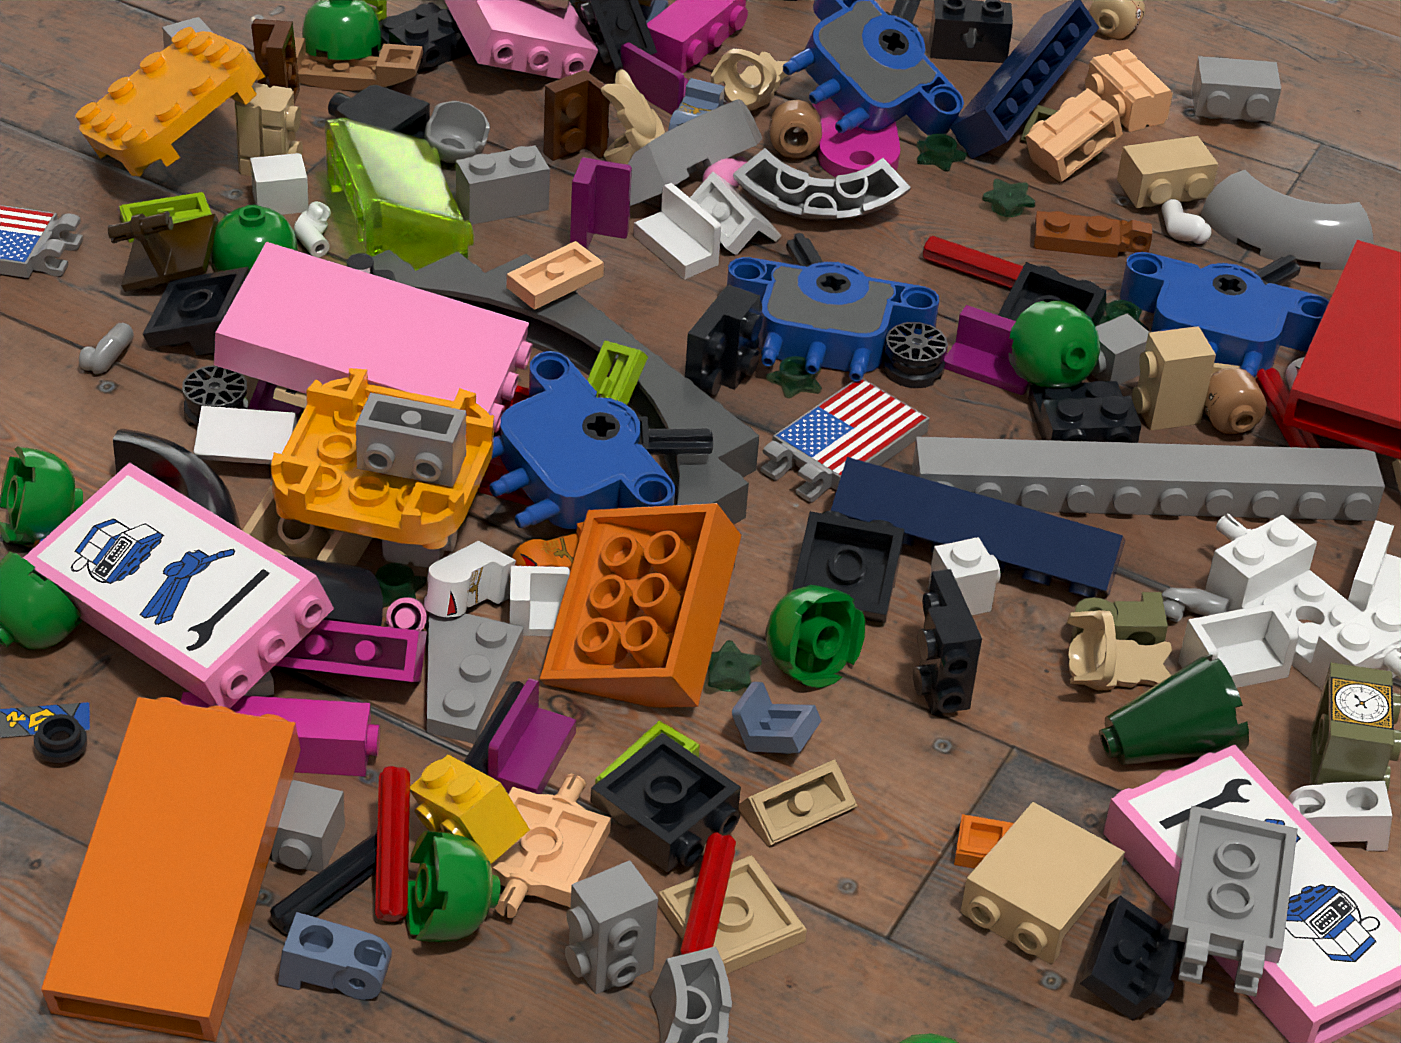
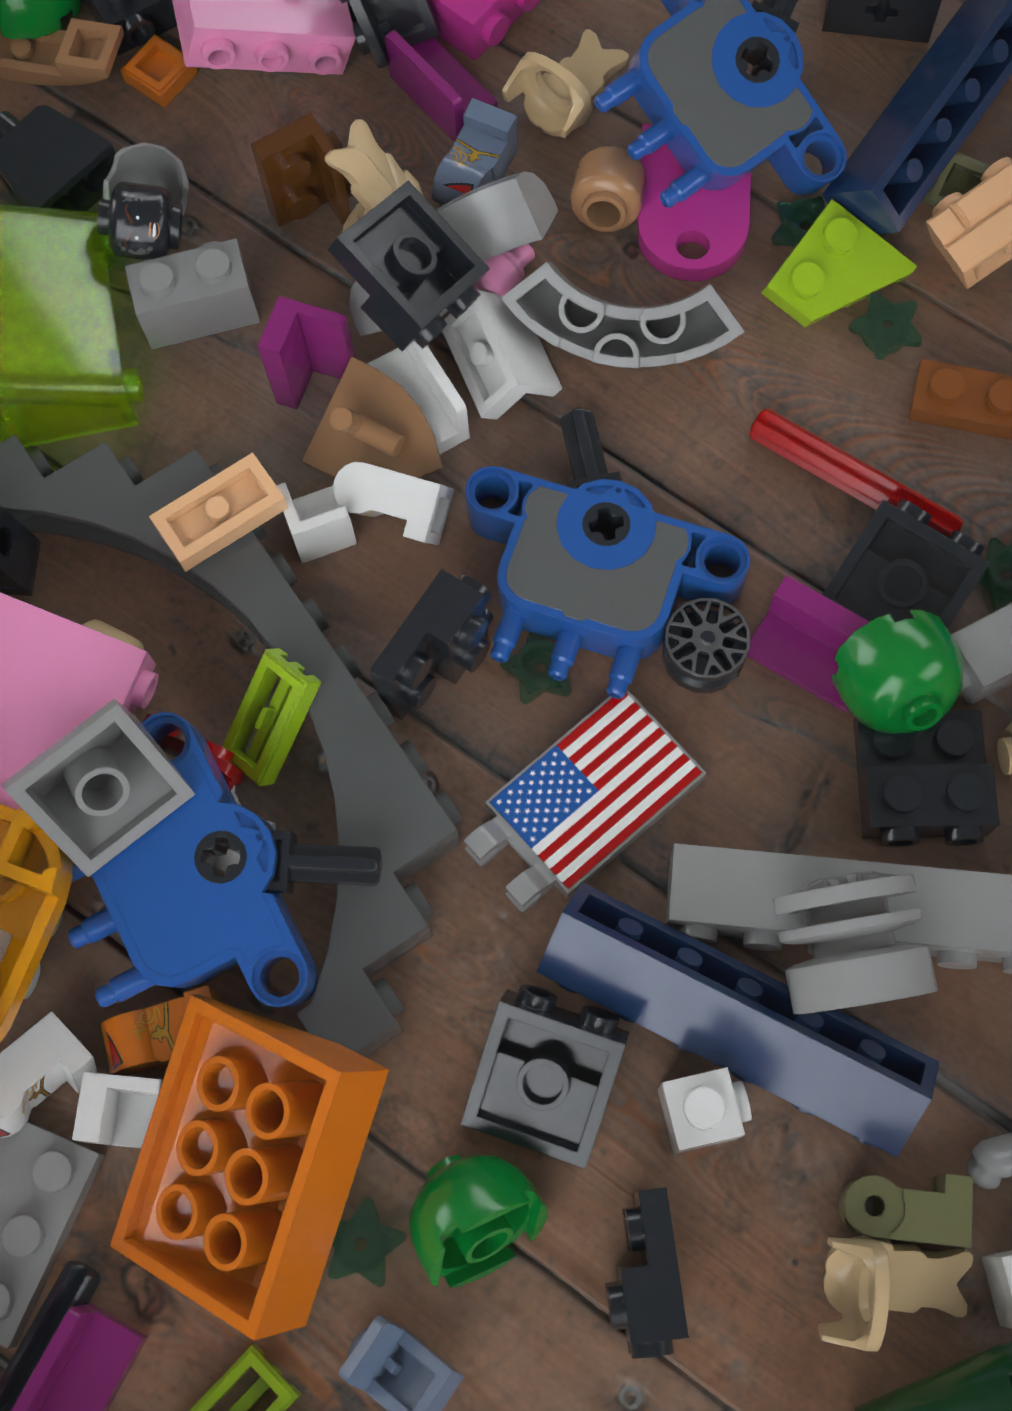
camera: 15 degrees right, 30 degrees up
(447, 80) = (158, 71): none -> orange tile
(462, 136) = (140, 221): none -> black head
(516, 372) = (99, 787): none -> light grey slope
(620, 301) = (317, 523): none -> white panel
(650, 254) = (374, 424): none -> medium nougat shield
(674, 282) = (379, 491): none -> white leg
(678, 147) = (409, 267): none -> black plate
(966, 167) = (834, 267): none -> lime wing
(1053, 450) = (854, 943): none -> light grey wheel

